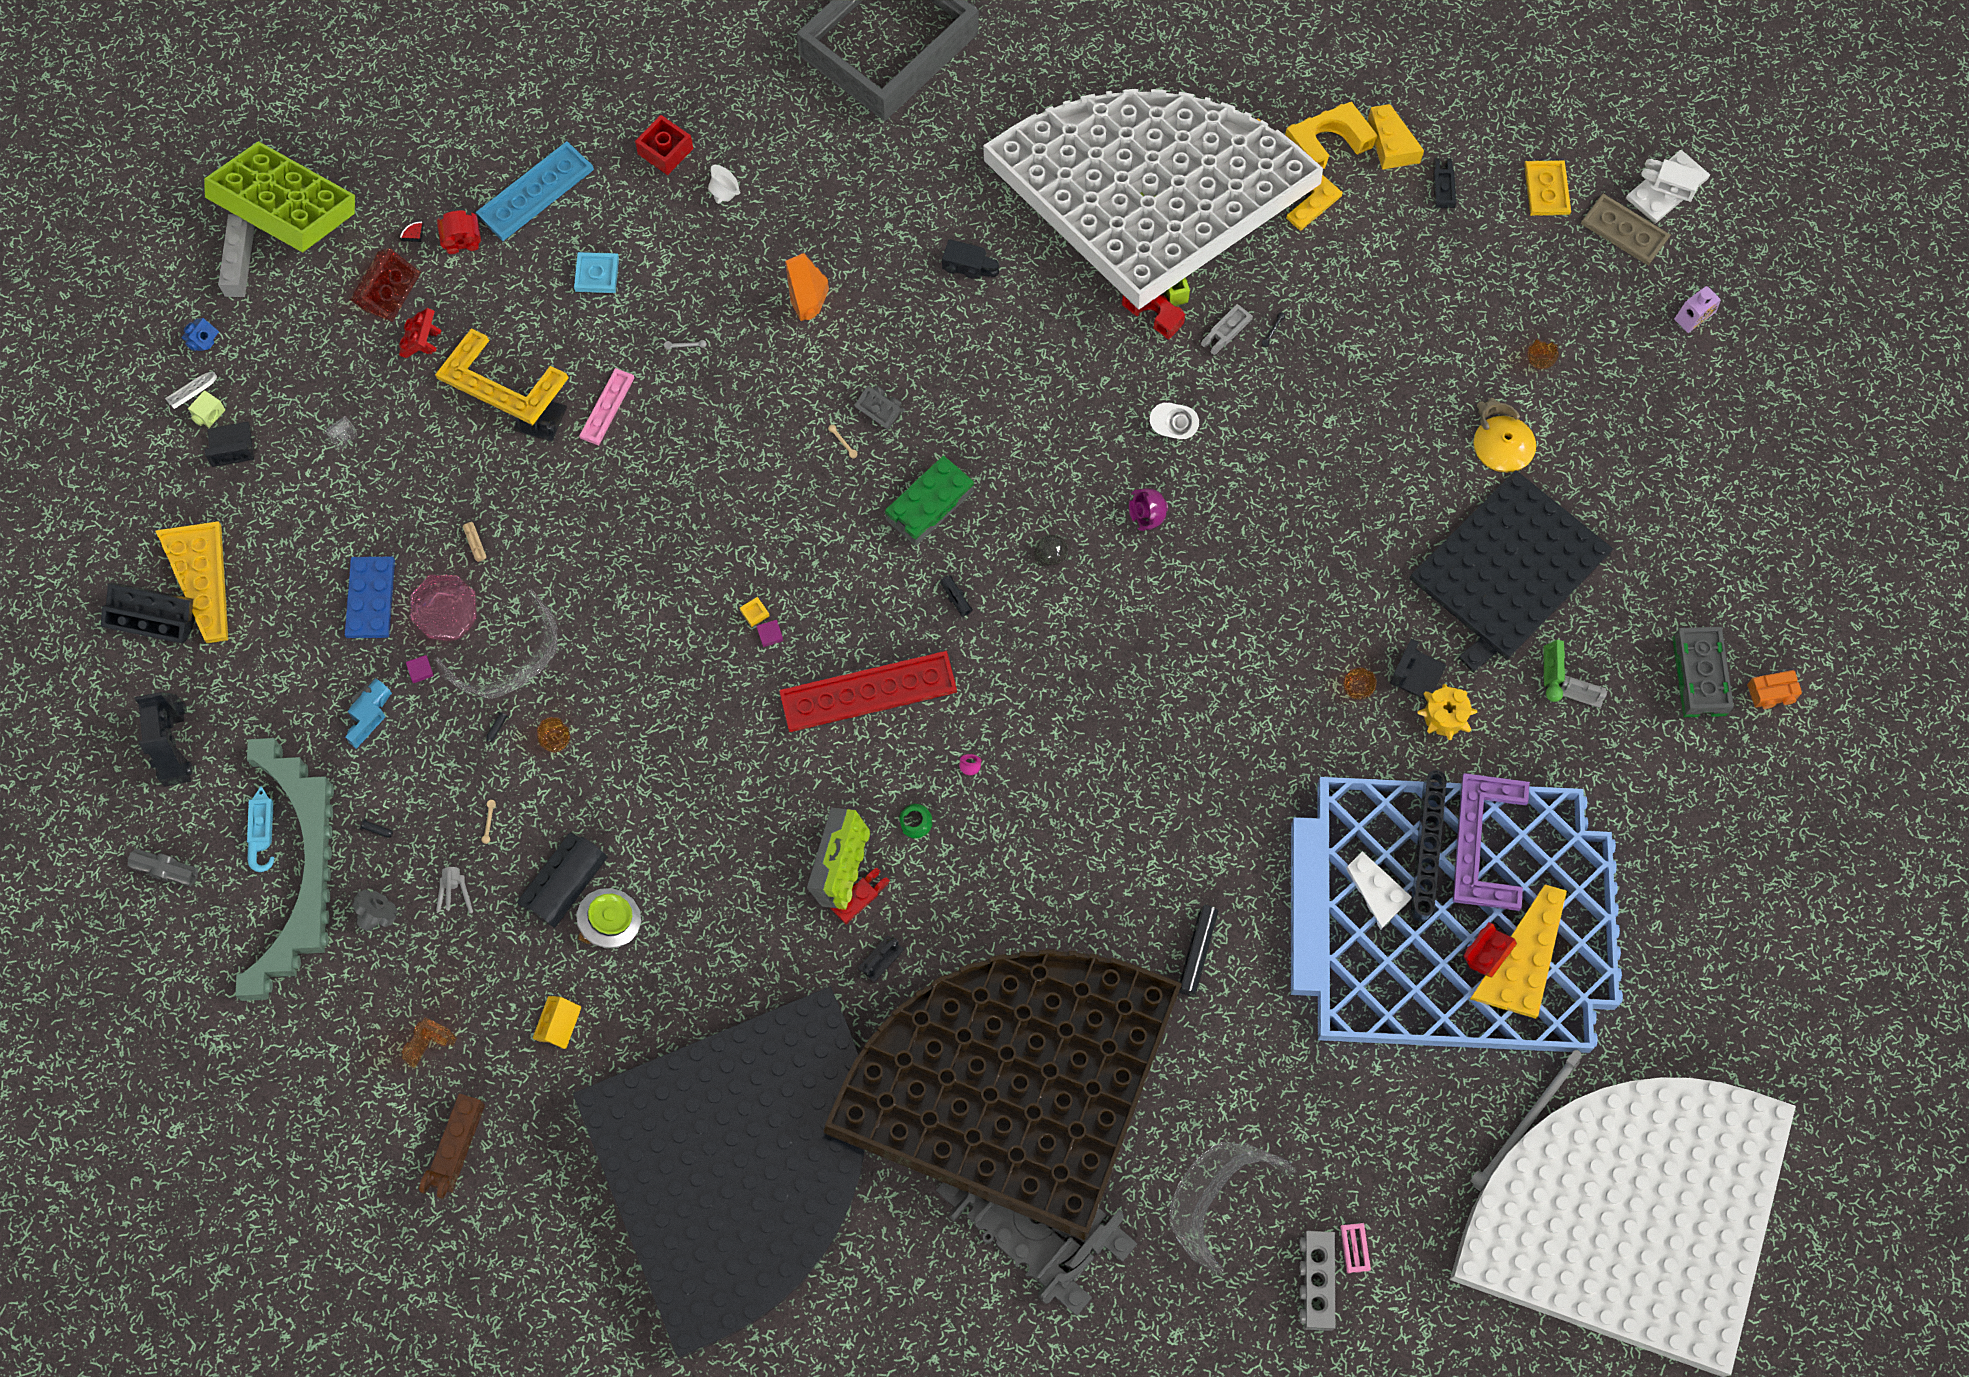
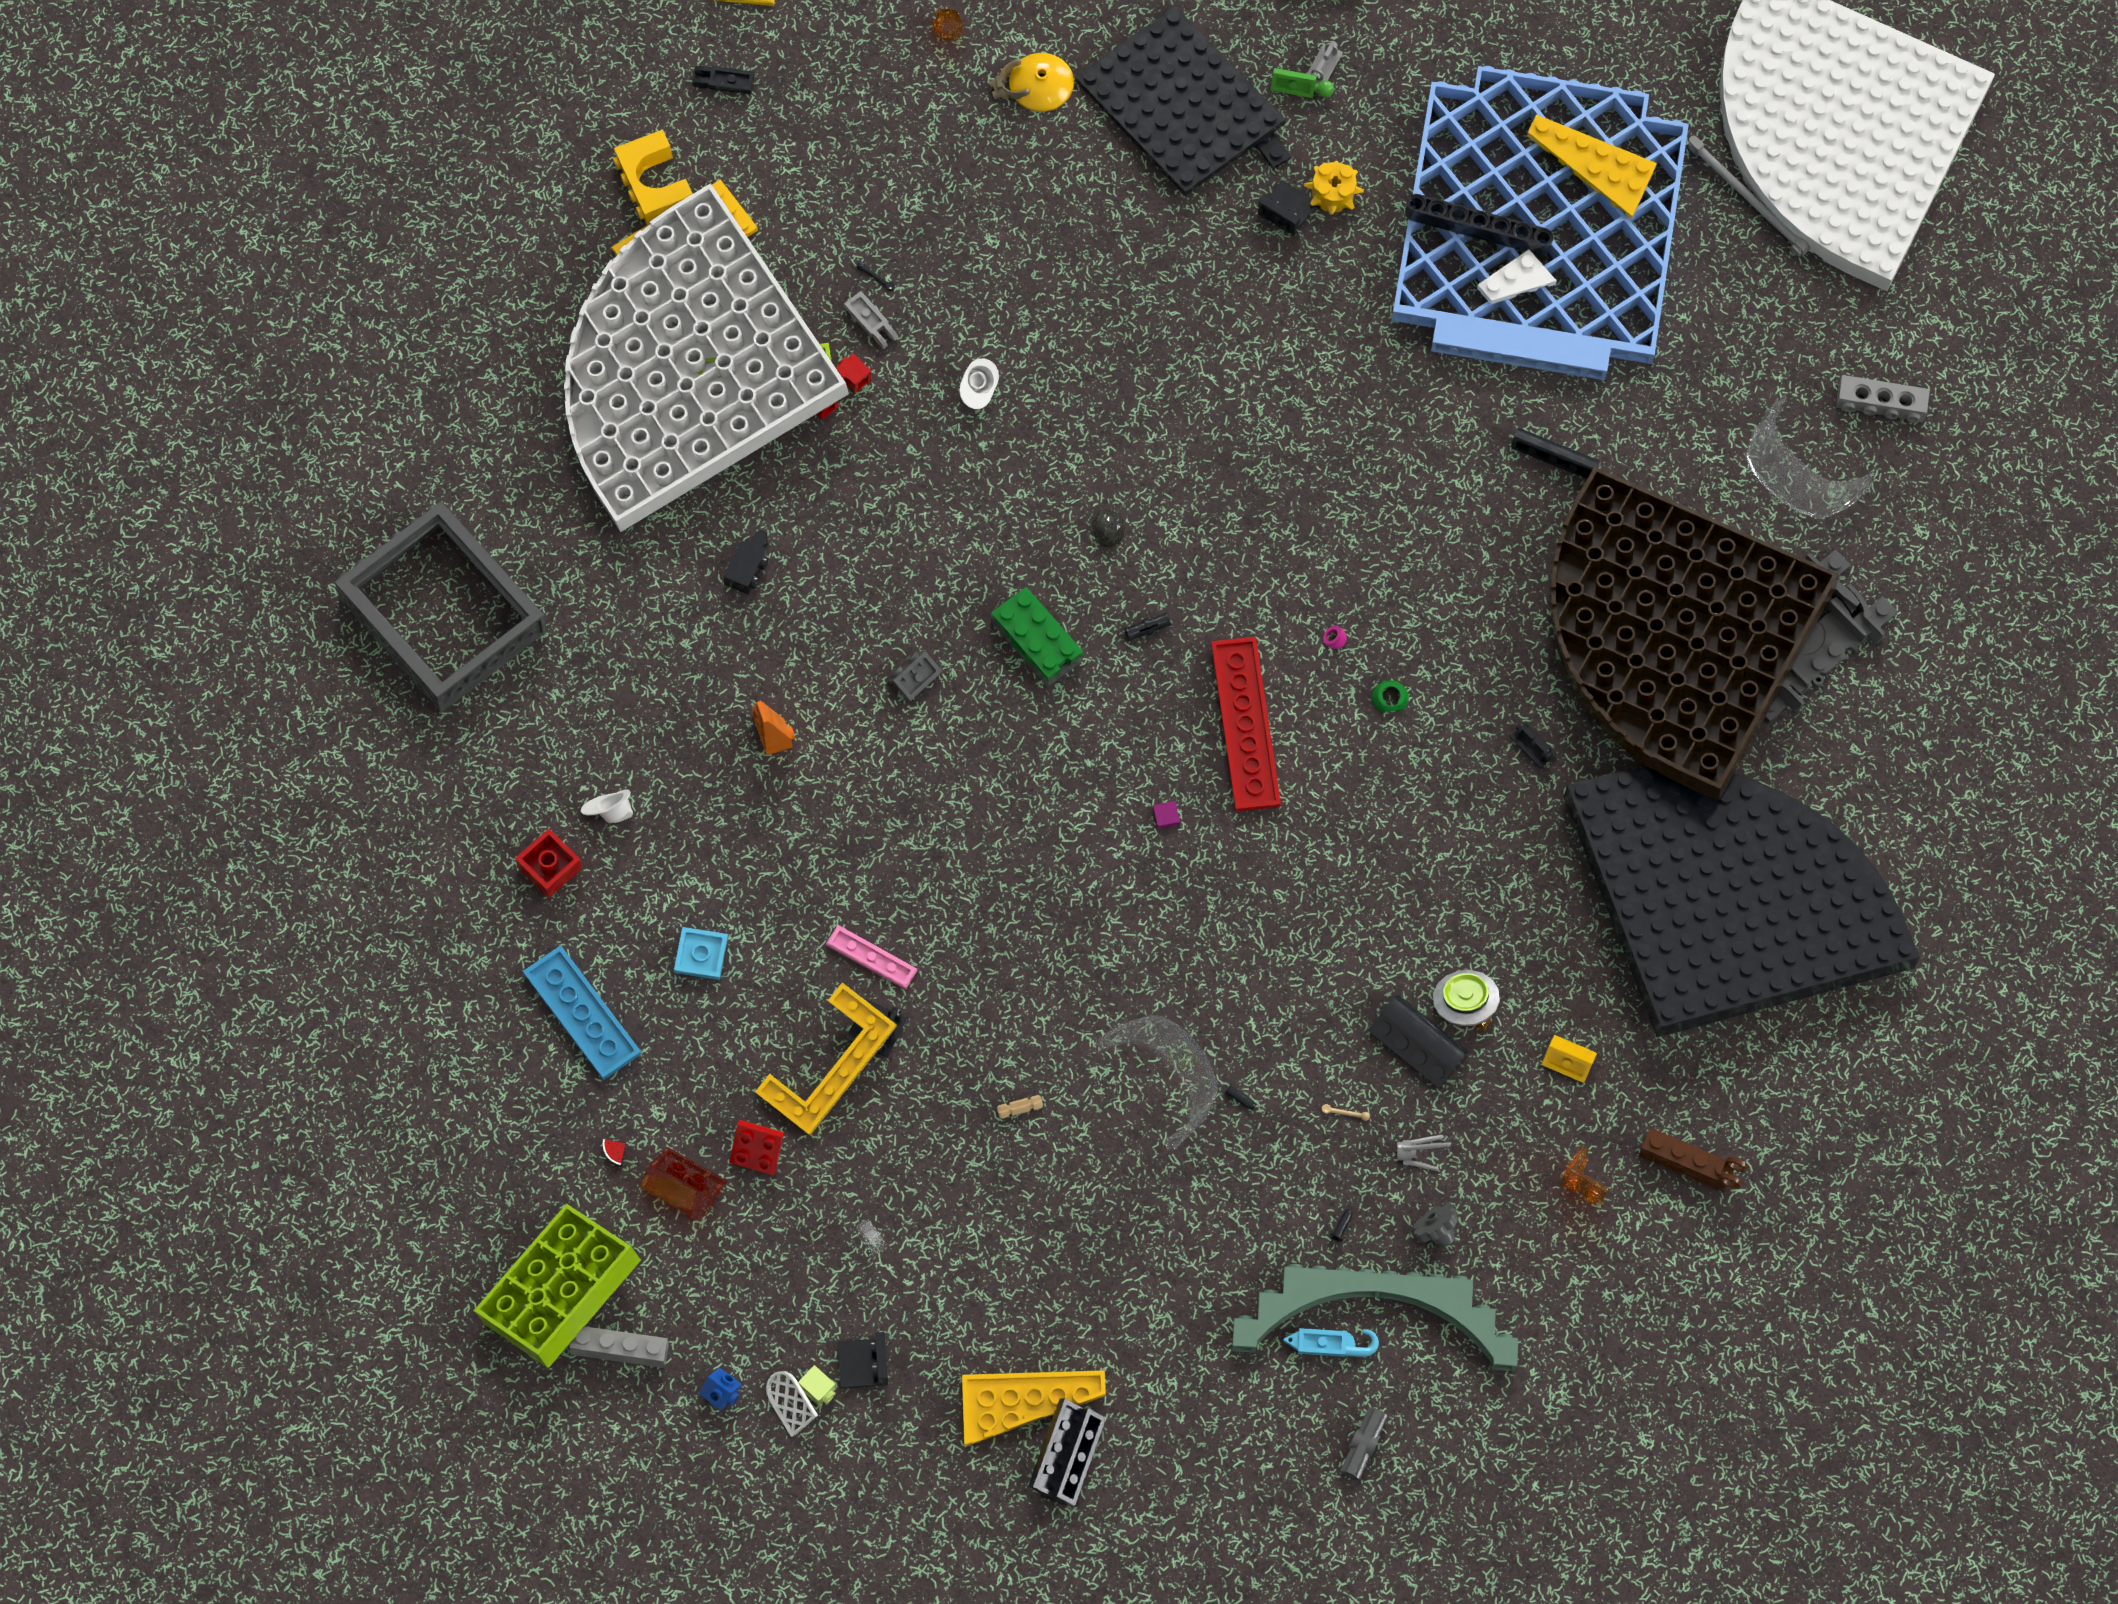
camera: 85 degrees left, 0 degrees up
(157, 717) = (1210, 1428): black wedge -> none
(366, 711) = (1208, 1227): dark azure plate -> none
(369, 597) = (1071, 1220): blue plate -> none
(419, 669) = (1163, 1172): magenta tile -> none
(443, 607) = (1102, 1135): clear pink piece -> none
(458, 231) = (630, 1094): red brick -> none
(548, 734) = (1266, 1034): clear orange hair -> none
(668, 345) = (803, 887): light grey hinge -> none
(754, 612) = (1141, 826): yellow plate -> none
(838, 858) = (1433, 764): lime piece -> none
(852, 453) = (964, 711): tan hinge -> none
(862, 895) = (1466, 758): red hinge -> none
(1148, 504) = (1076, 425): magenta cylinder -> none
(1349, 1269) = (1837, 368): bright pink tile -> none
(1359, 683) = (1295, 259): clear orange hair -> none
(1394, 141) = (669, 113): yellow wedge -> none
(1466, 884) = (1521, 199): medium lavender plate -> none
(1489, 950) = (1590, 190): red bracket -> none

